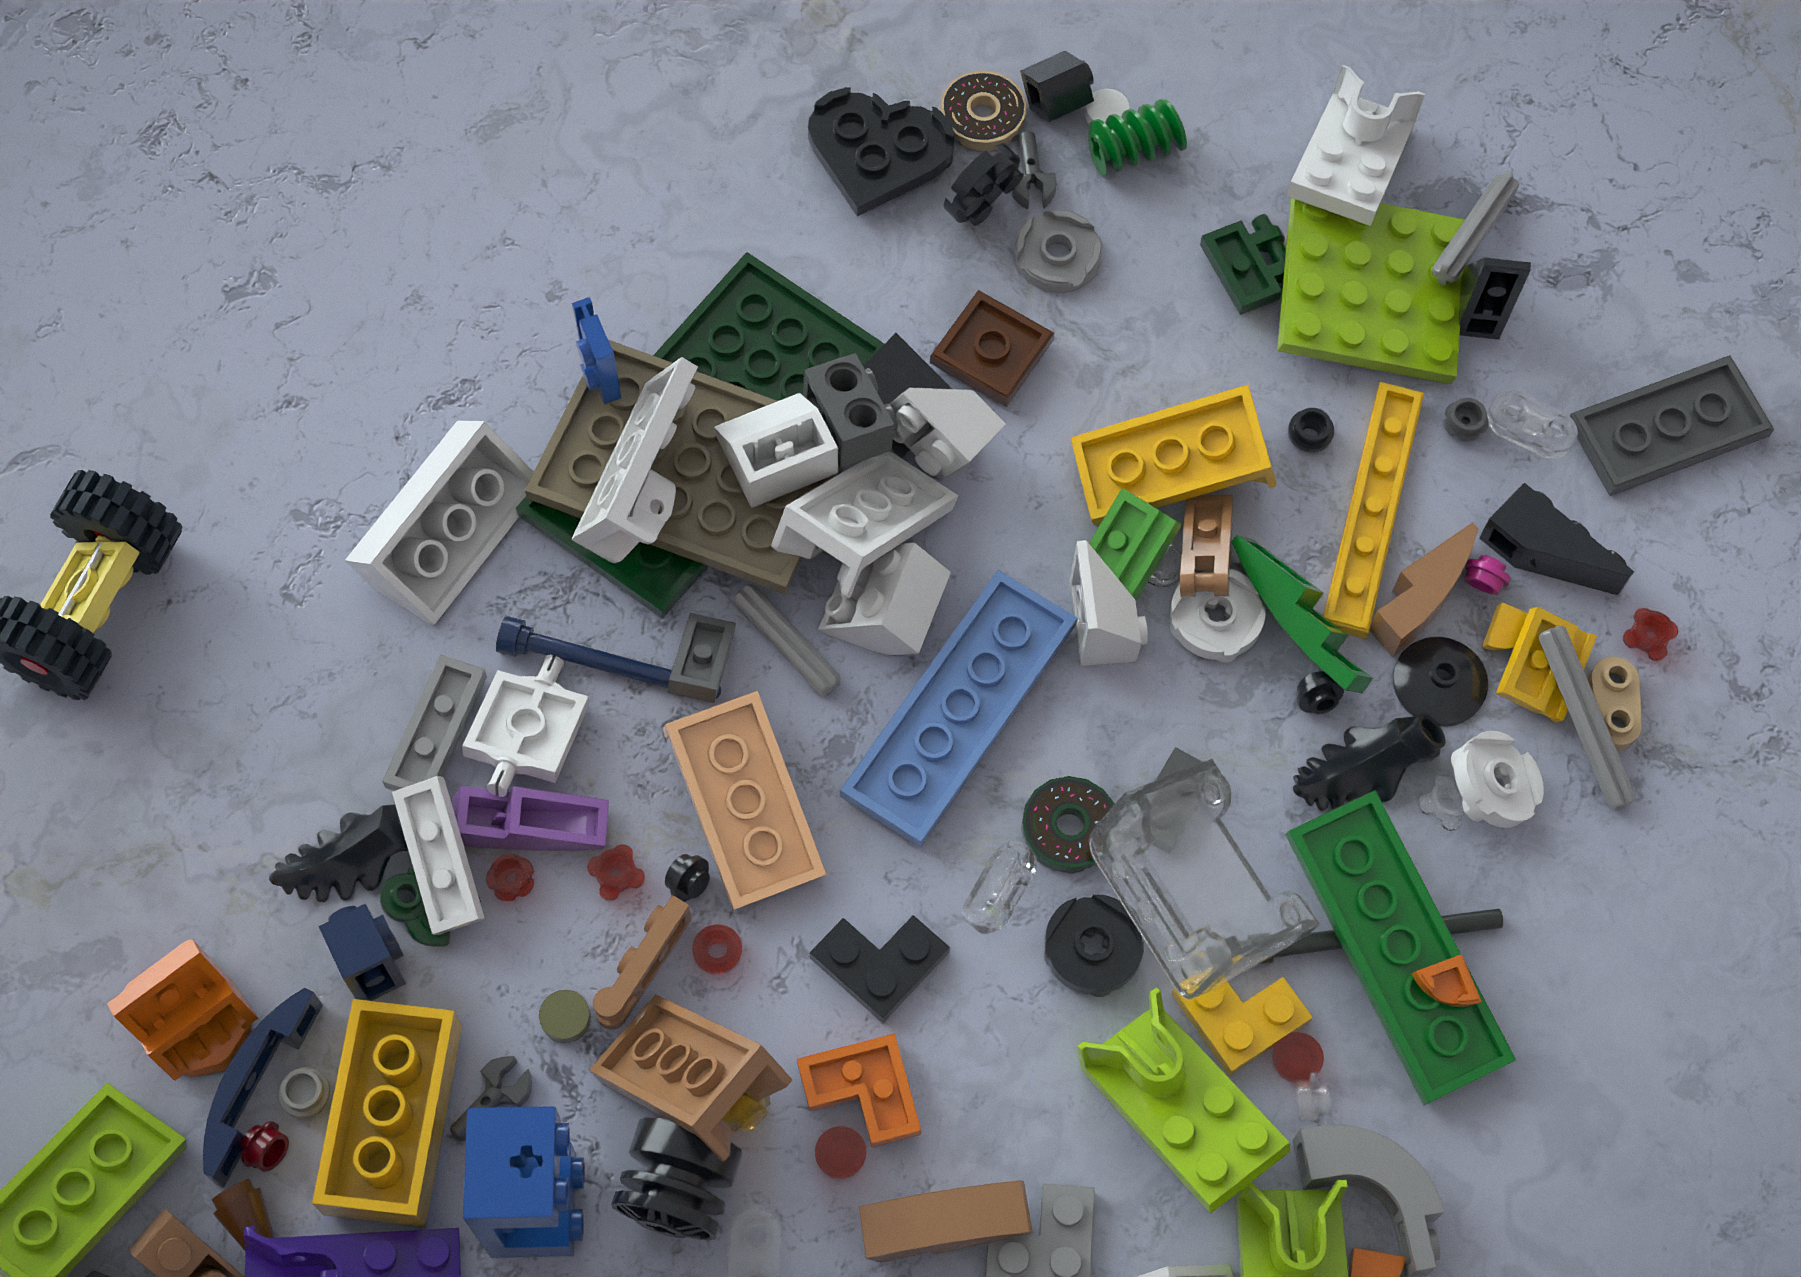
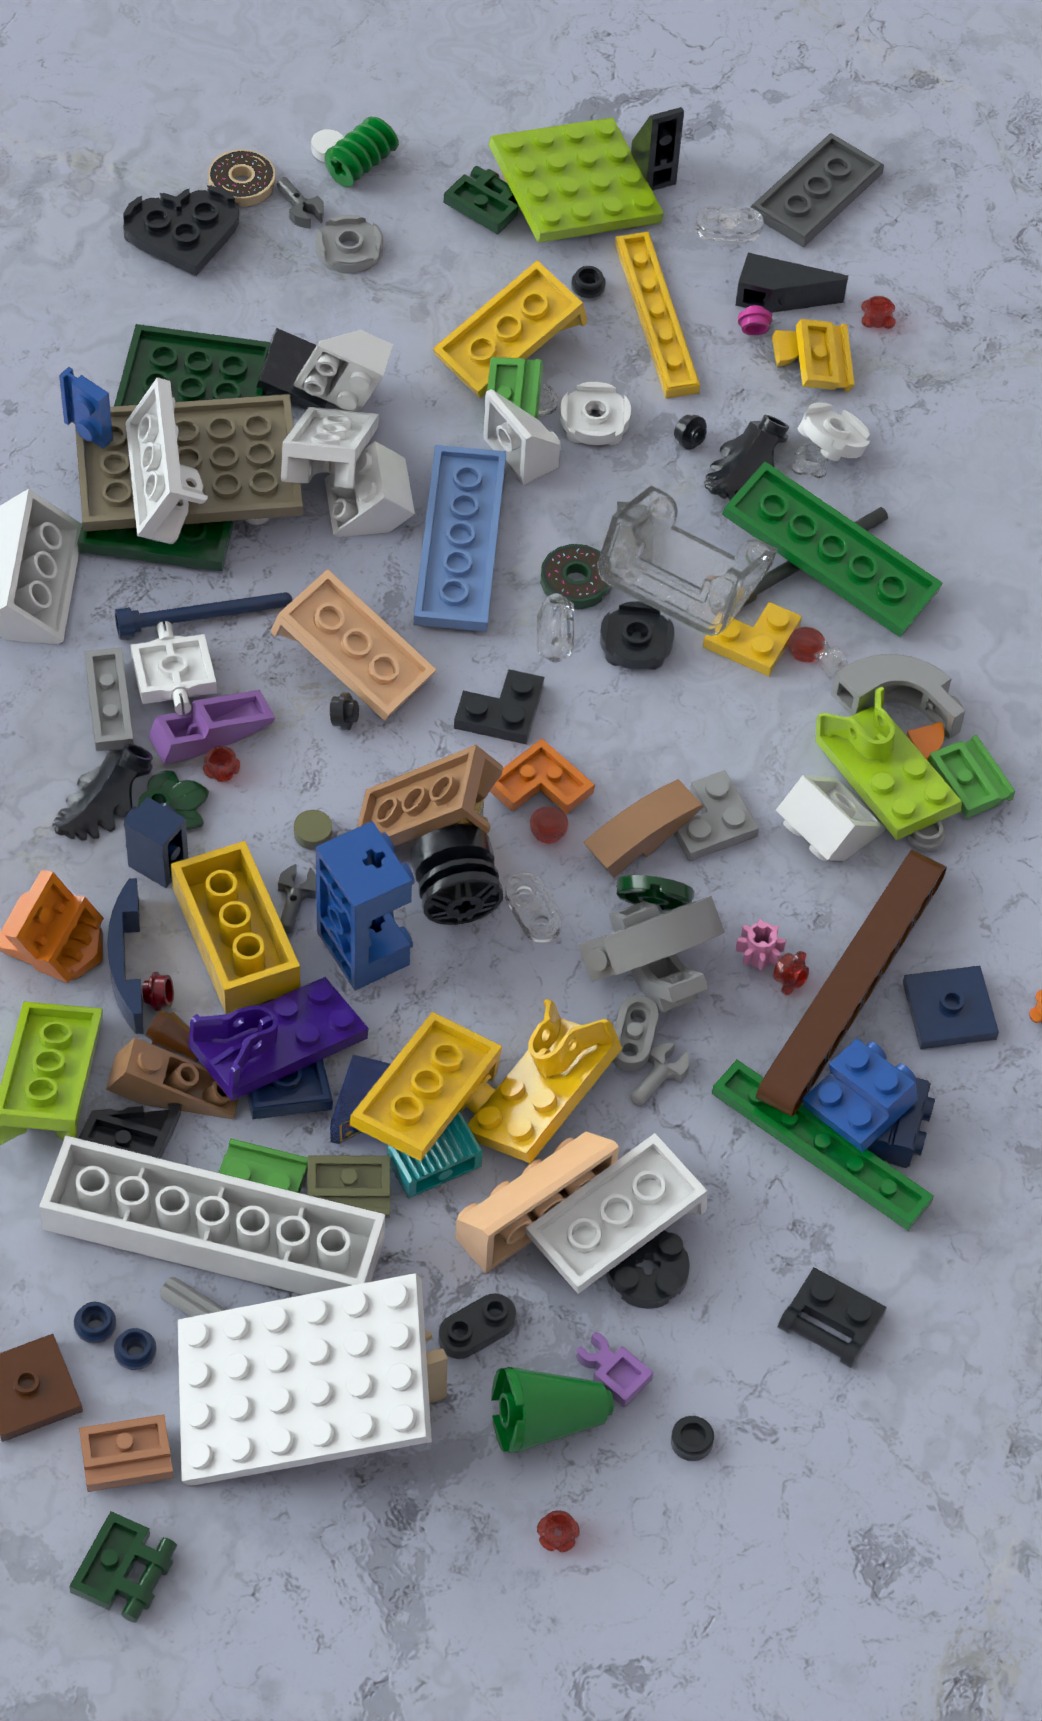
camera: 30 degrees left, 10 degrees down
(304, 1092) = (163, 949): light grey plate -> none
(438, 855) = (169, 762): white plate -> none
(611, 859) = (291, 722): clear red plate -> none
(642, 964) = (345, 774): medium nougat plate -> none
(701, 657) = (269, 577): dark grey plate -> none
(717, 935) = (390, 737): clear red plate -> none
(778, 448) = (249, 419): white slope -> none
(787, 640) = (317, 547): light grey axle -> none
(851, 409) = (279, 380): dark grey brick -> none
(982, 184) = (277, 211): black plate -> none
(992, 348) = (342, 311): reddish brown plate -> none
(1058, 85) = (287, 139): black brick -> none
(1183, 1106) = (750, 693): lime plate -> none
(1206, 545) = (567, 372): medium nougat plate -> none
(1292, 604) = (642, 383): green slope -> none
(1354, 150) = (514, 99): white plate -> none
(1422, 592) = (720, 346): medium nougat slope -> none
(1425, 693) = (761, 393): black dish -> none
(1448, 983) = (876, 553): orange tile -> none
(1468, 409) = (685, 236): dark grey plate -> none
(1475, 228) = (623, 117): light grey axle -> none
(1587, 717) = (868, 372): light grey axle -> none
(1618, 699) = (875, 357): tan plate -> none

